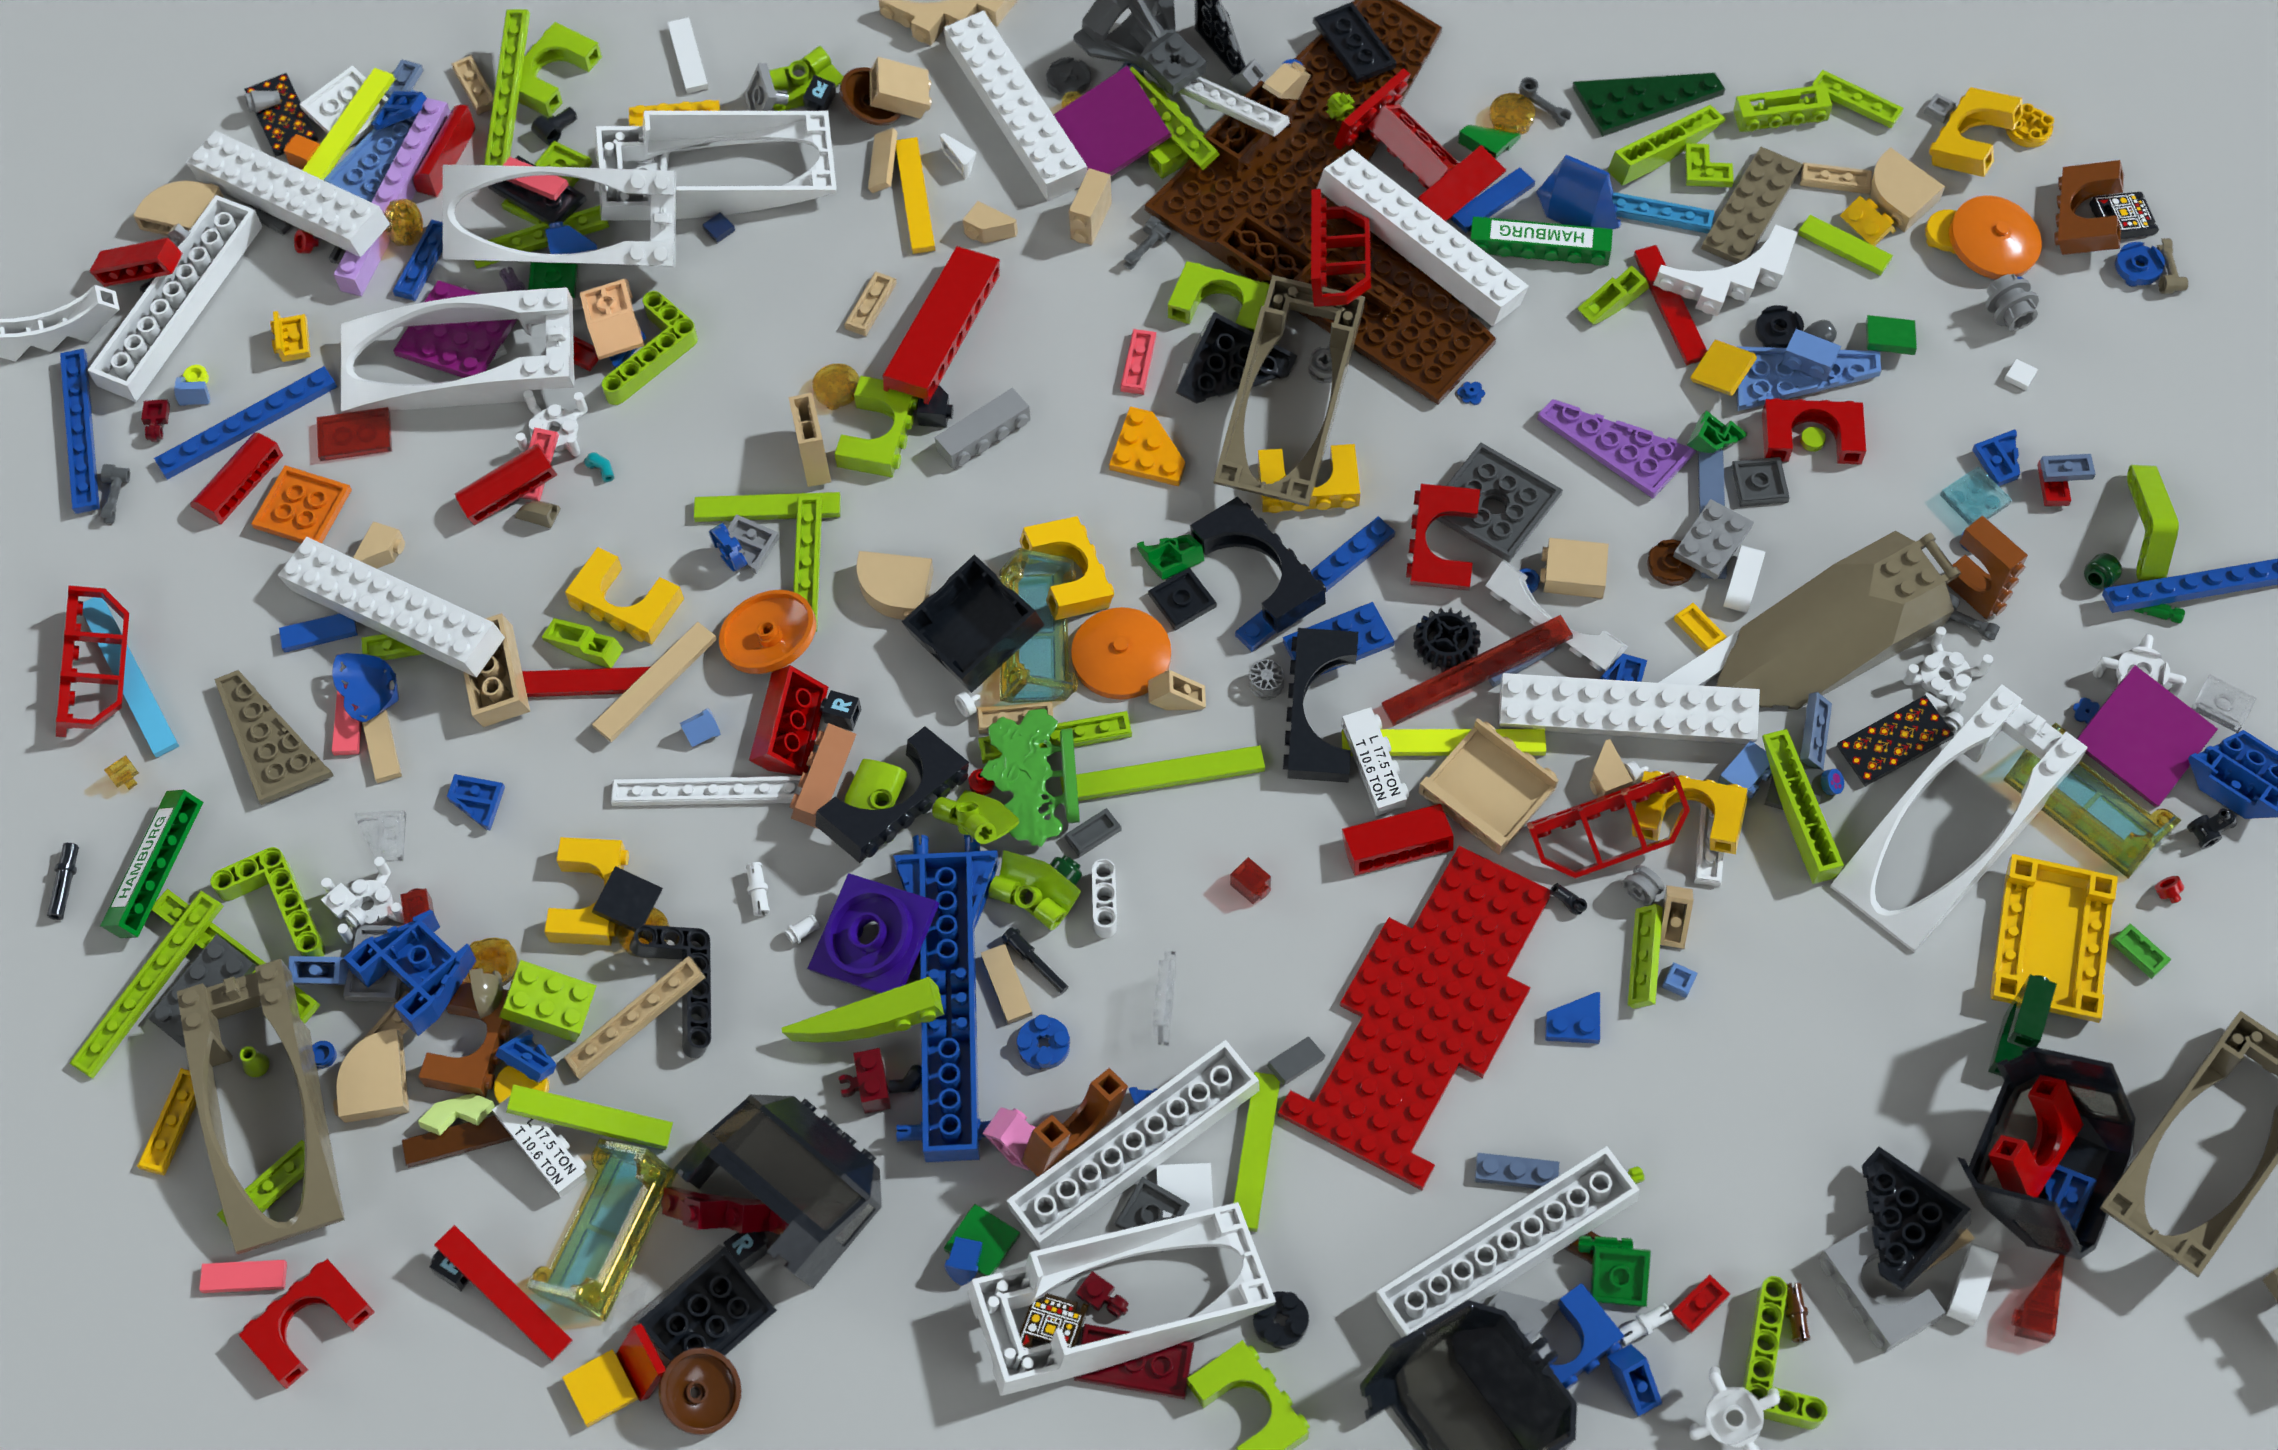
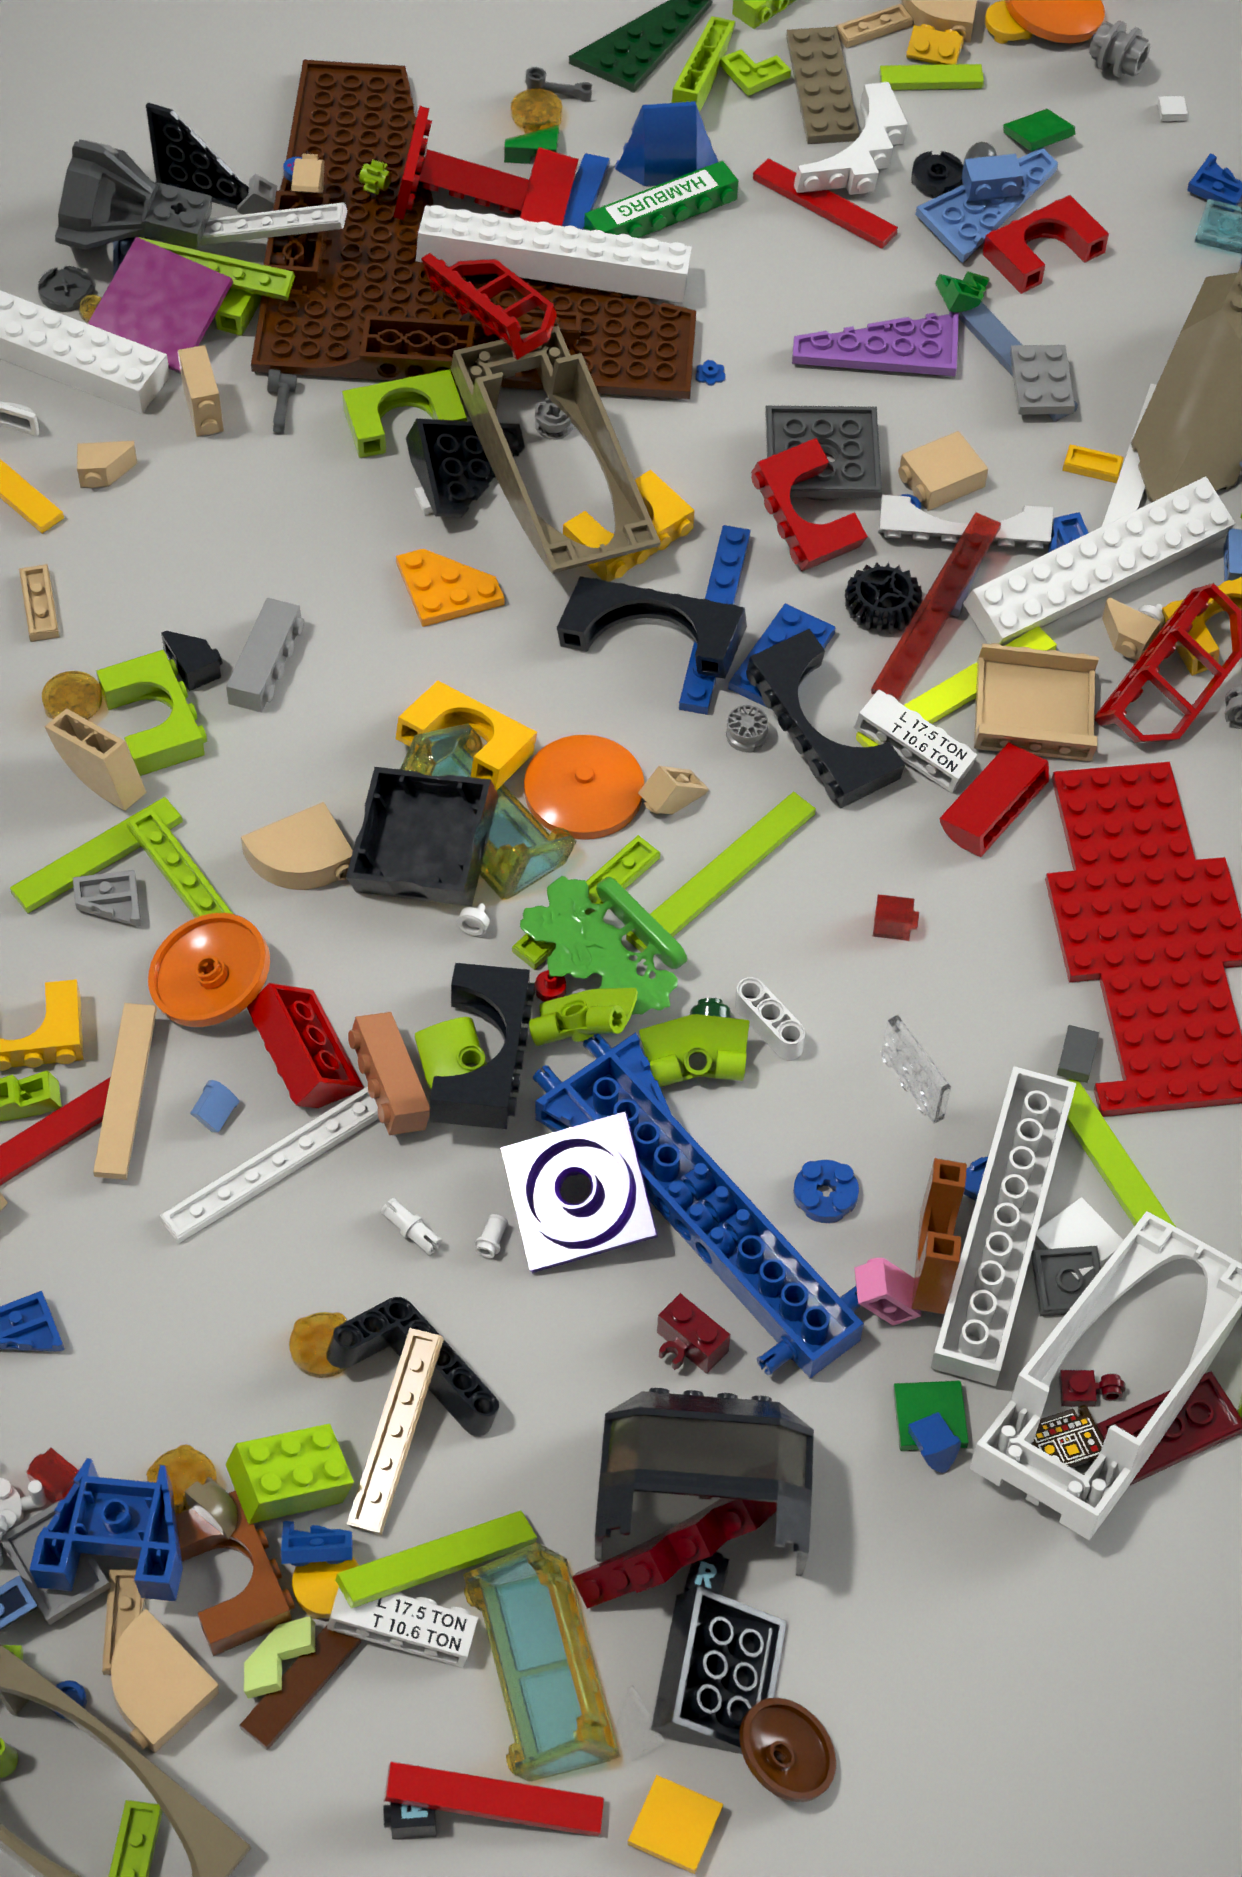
camera: 40 degrees left, 5 degrees down
(592, 857) = (225, 1299): yellow arch -> none
(627, 899) = (288, 1318): black tile -> none
(640, 1362) = (703, 1762): red tile -> none
(728, 547) = (95, 911): blue plate -> none
(841, 710) = (348, 1000): black brick -> none
(872, 1016) = (649, 1266): lime slope -> none
(909, 1082) = (729, 1308): black arm -> none
(942, 324) = (141, 576): red tile -> none
(1006, 984) = (743, 1159): tan tile -> none
(1015, 712) = (506, 921): tan tile -> none
(1025, 951) = (734, 1116): black pin -> none
(1093, 832) = (701, 967): dark grey tile -> none
(1138, 361) = (366, 512): coral tile -> none
(1172, 555) = (555, 669): green slope -> none
(1182, 598) = (599, 703): black tile -> none
(1354, 42) = (334, 117): black tile -> none
(1570, 900) = (1191, 761): black arm -> none
(1614, 296) = (769, 219): lime slope -> none
(1663, 213) = (755, 127): dark azure tile -> none
(1666, 567) = (1017, 428): reddish brown tile -> none
(1723, 367) = (923, 229): yellow tile -> none
(1744, 579) = (1097, 399): white beam -> none
(1760, 481) = (1034, 312): dark grey tile -> none
(1813, 439) = (1048, 251): lime tile -> none

